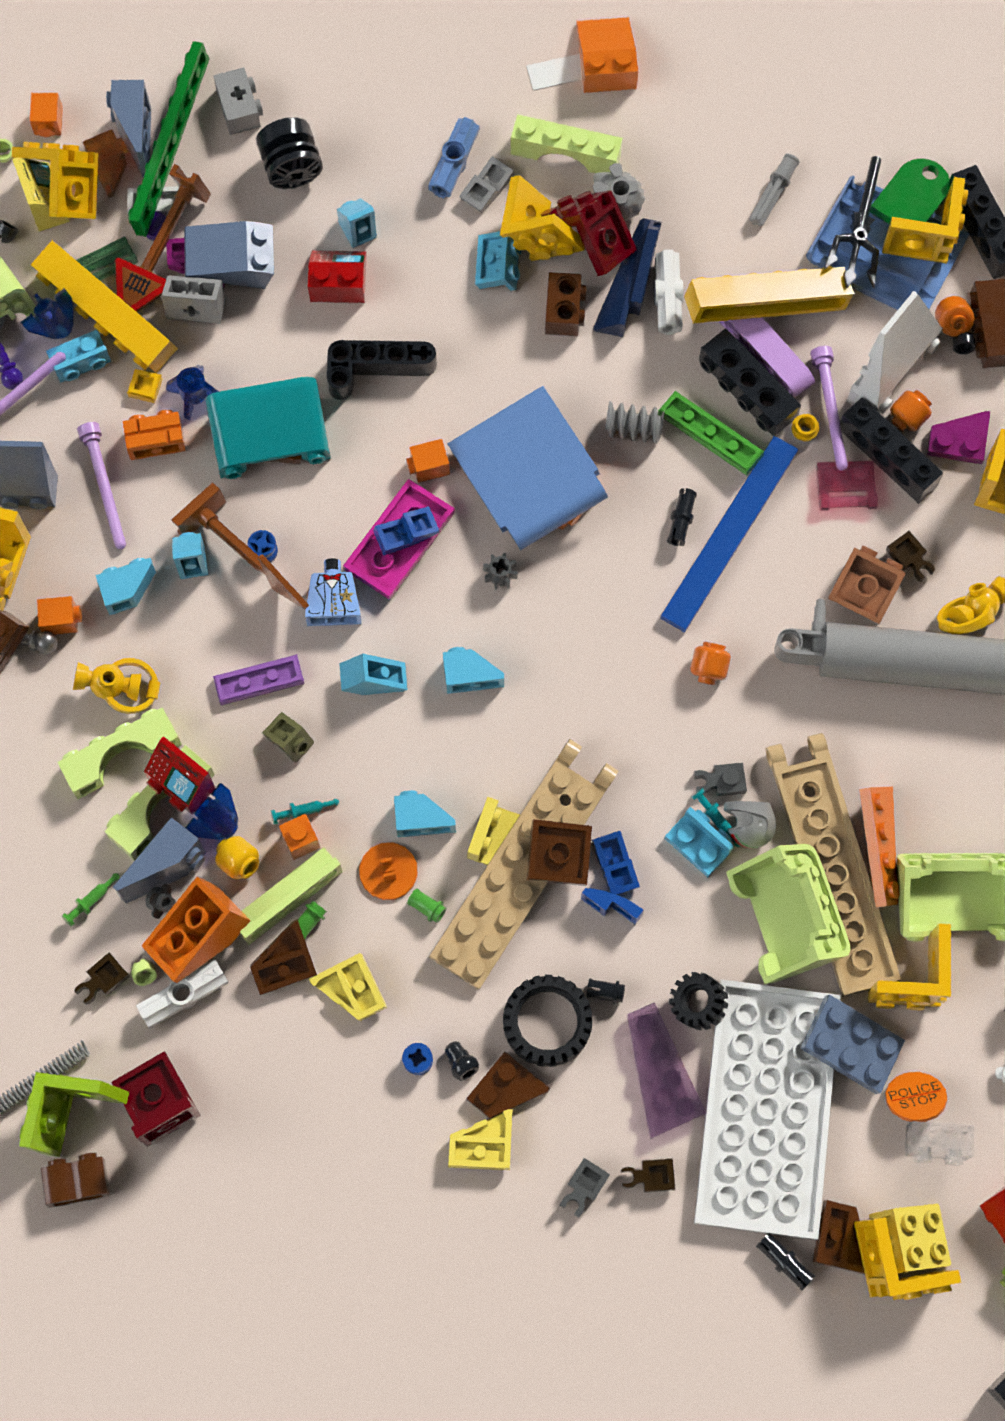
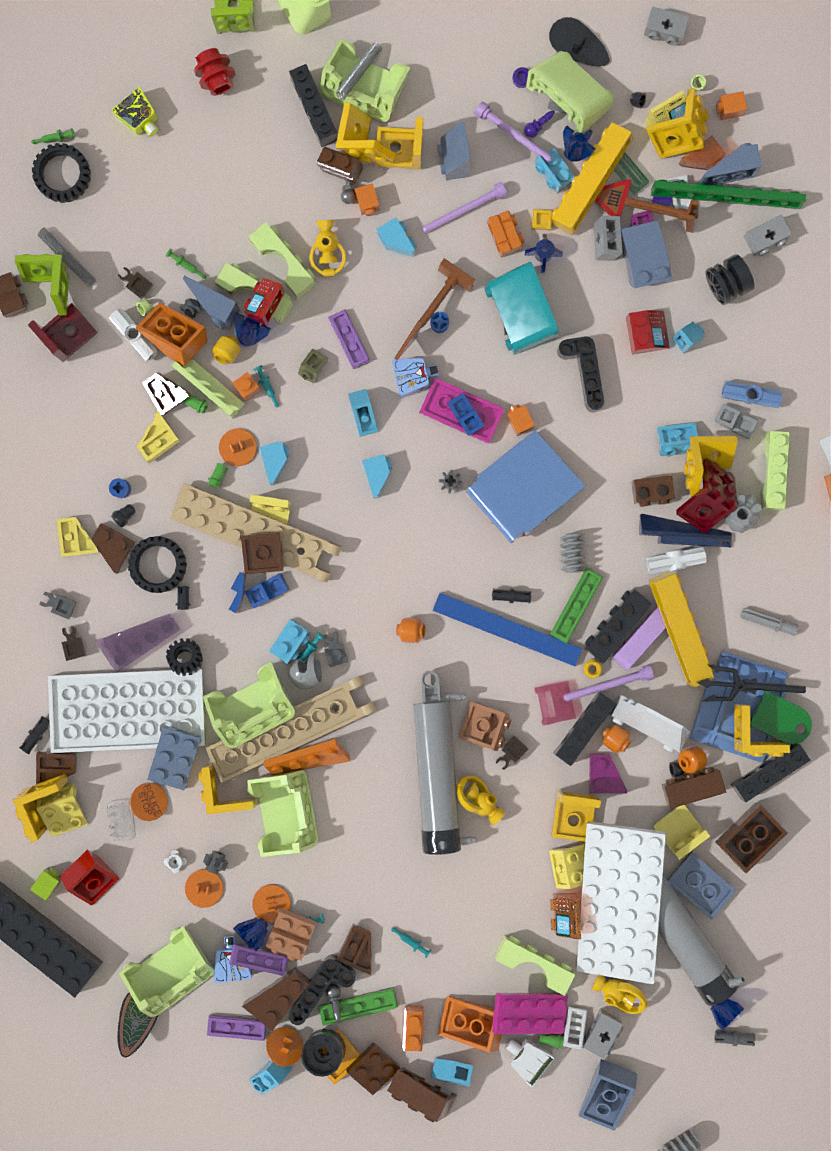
camera: 80 degrees right, 15 degrees up
(189, 555) = (424, 275): medium azure slope -> none

